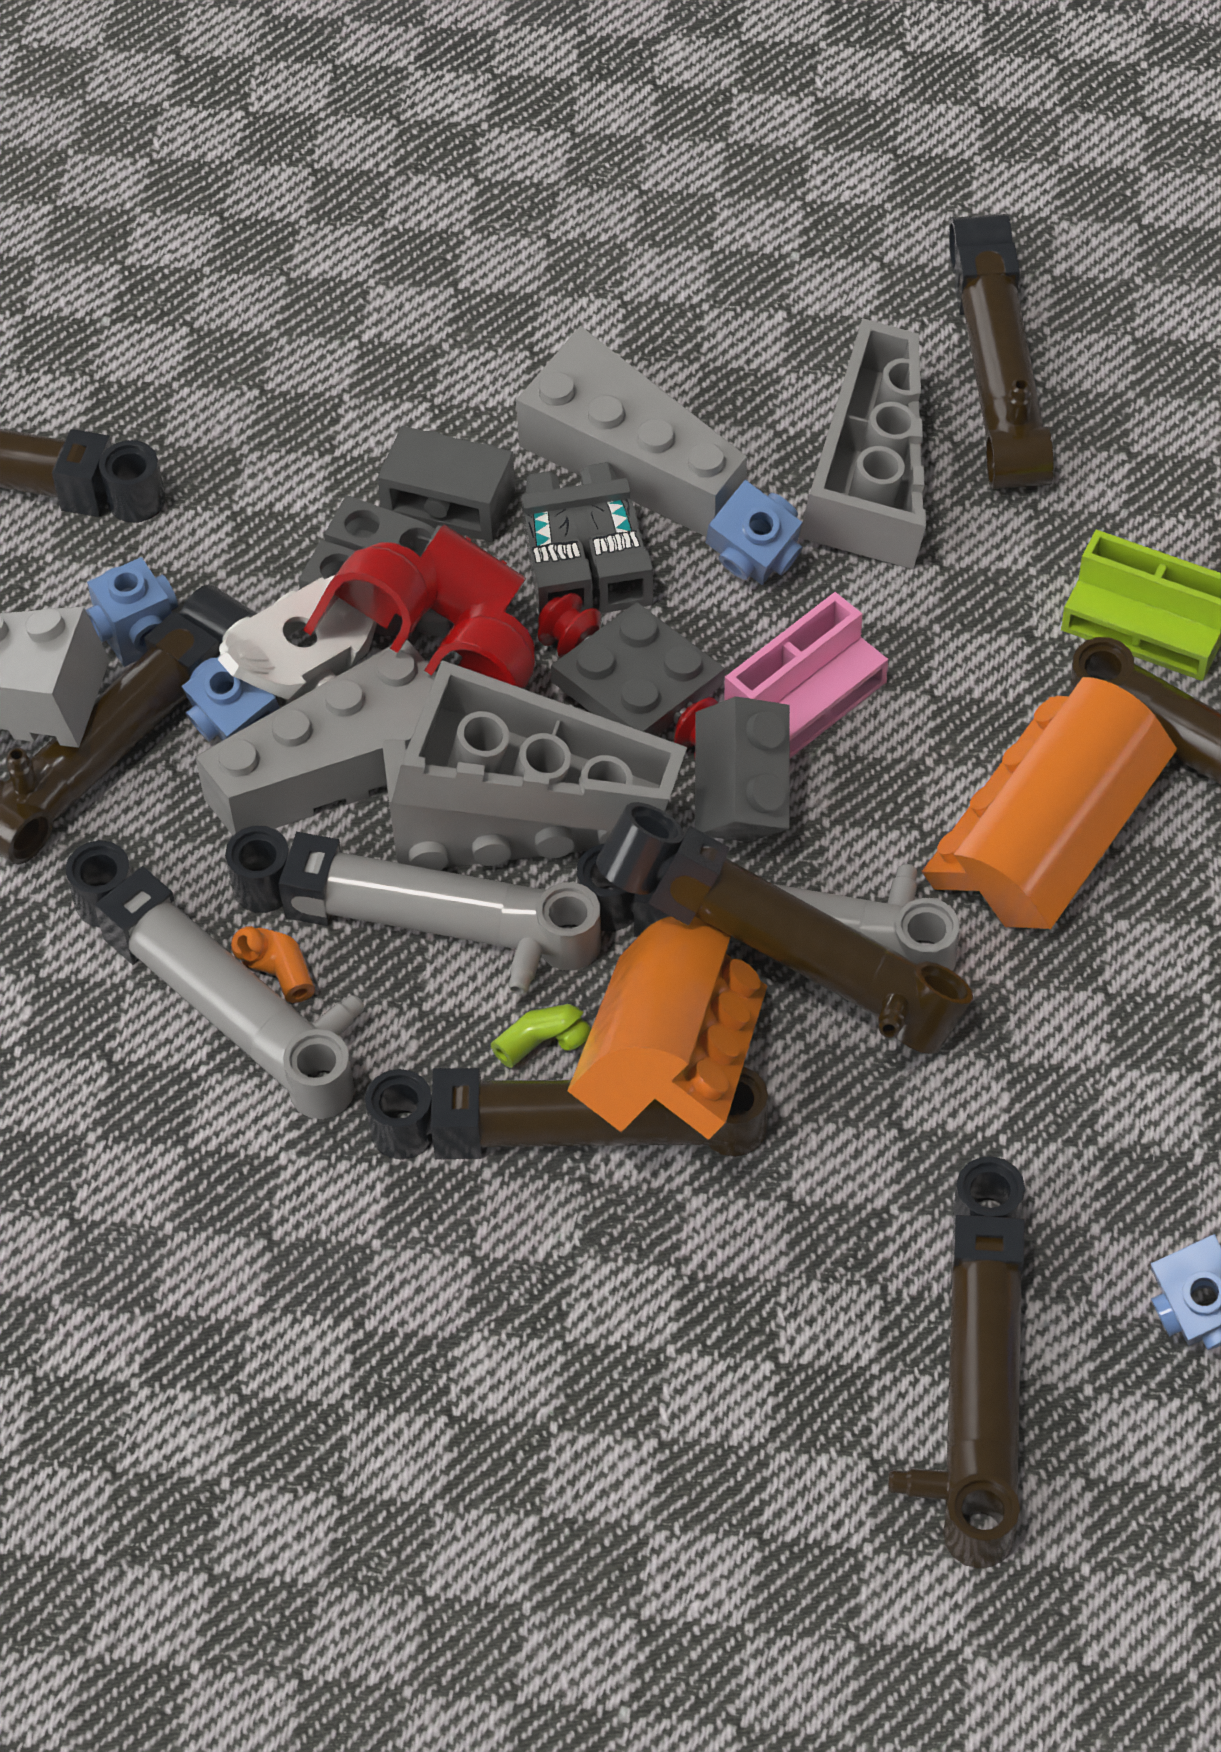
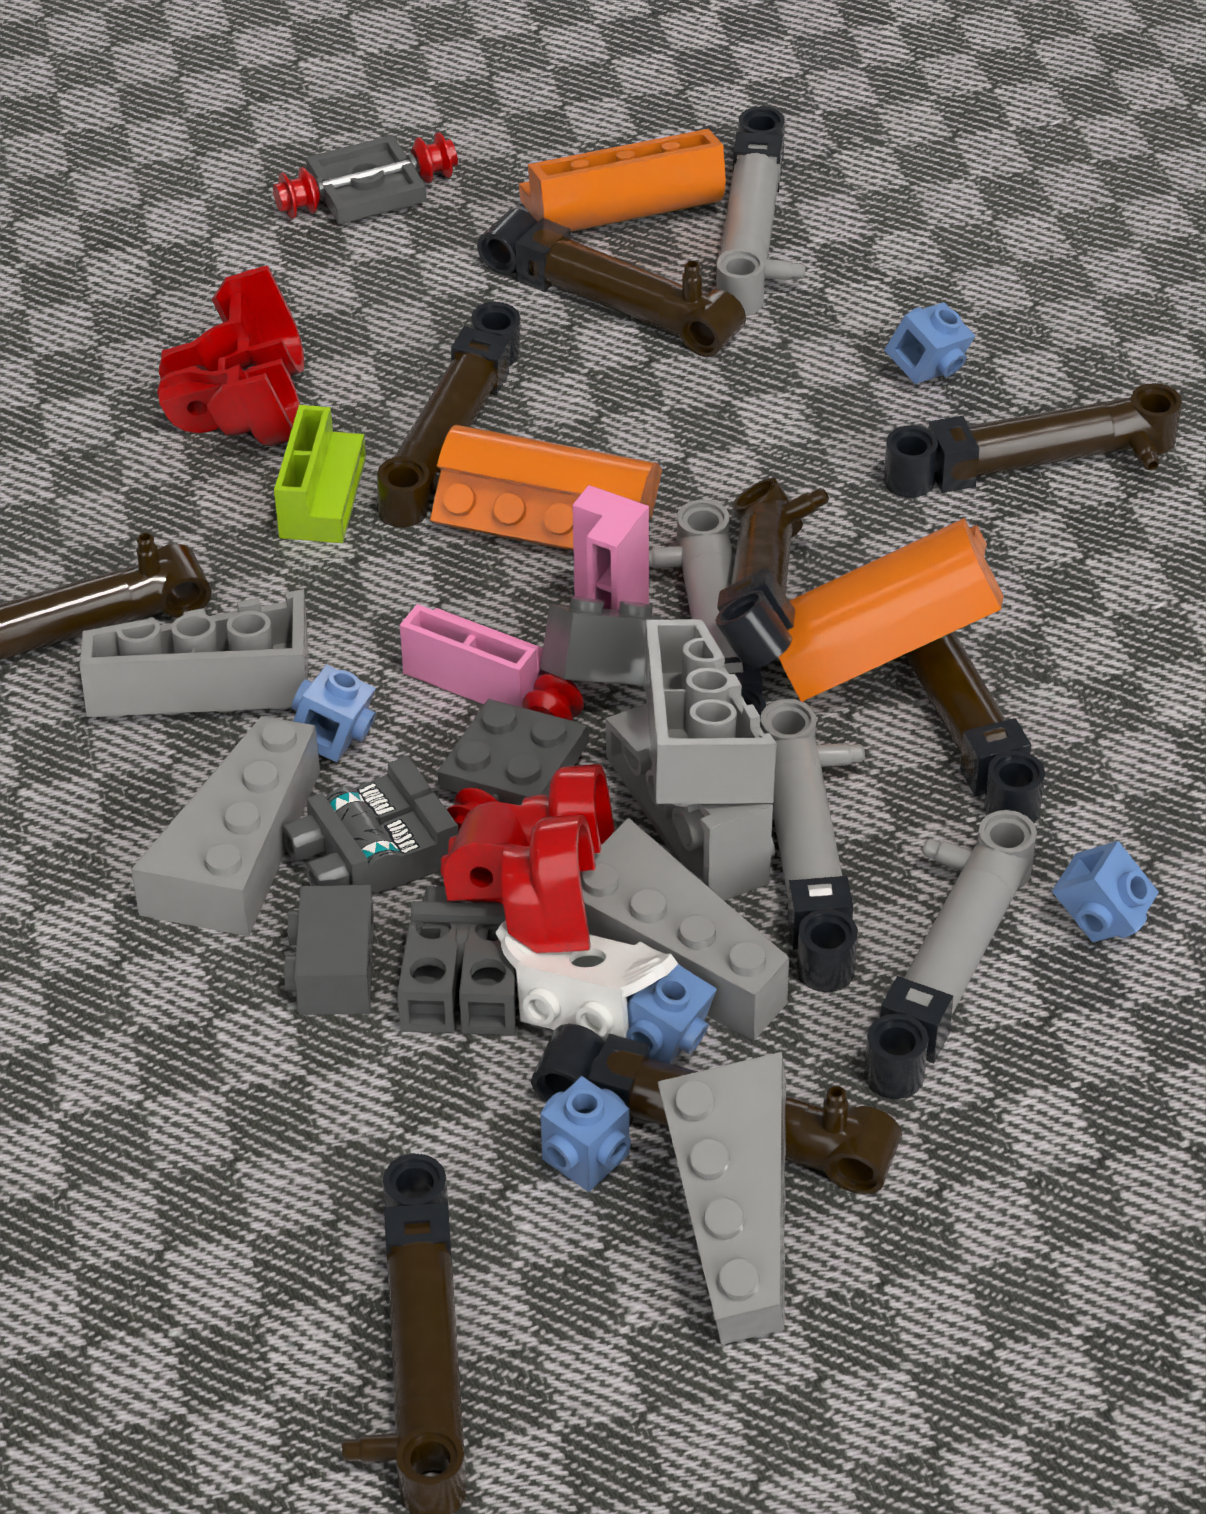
camera: 110 degrees left, 10 degrees down
(203, 1130) = (1105, 892): none -> medium blue brick
(275, 955) = (899, 922): orange arm -> none
(537, 1026) = (883, 741): lime arm -> none
(861, 797) = (610, 548): none -> bright pink piece

